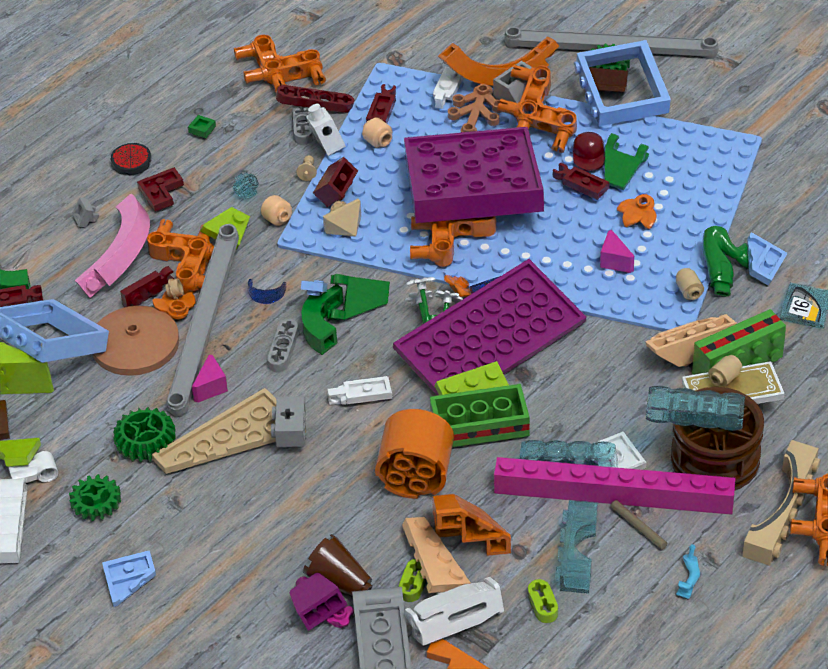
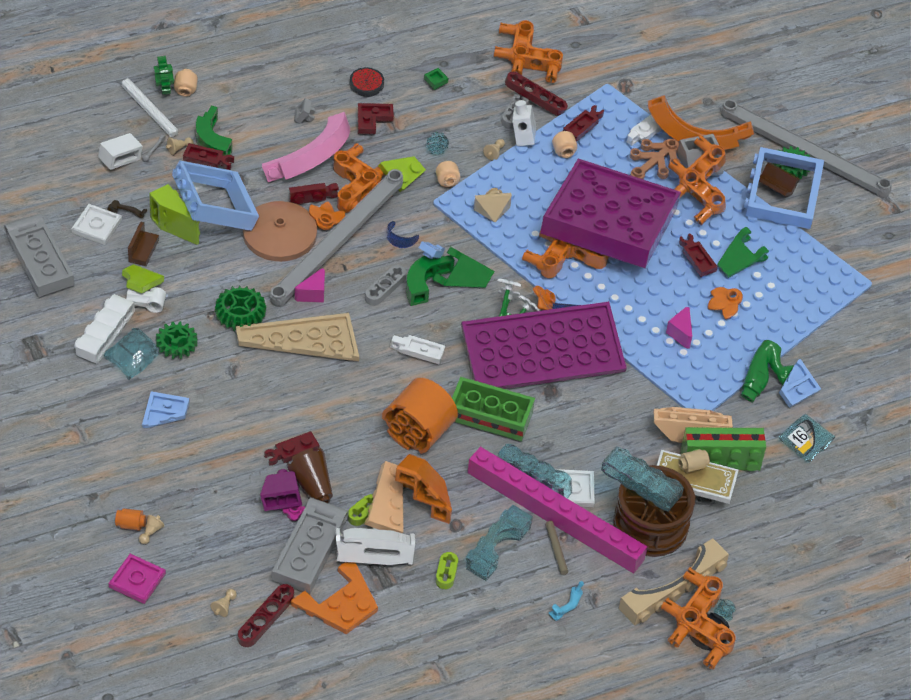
camera: 20 degrees right, 5 degrees up
(54, 532) = (132, 353): none -> clear light blue slope
(174, 288) = (331, 203): tan plate -> none
(289, 421) = (347, 347): light grey brick -> none
(294, 552) = (287, 449): none -> dark red plate
(335, 182) = (504, 171): dark red brick -> none
(475, 379) = (506, 379): lime wing -> none
(588, 151) = (721, 233): dark red cap -> none
(689, 284) = (722, 378): tan brick -> none

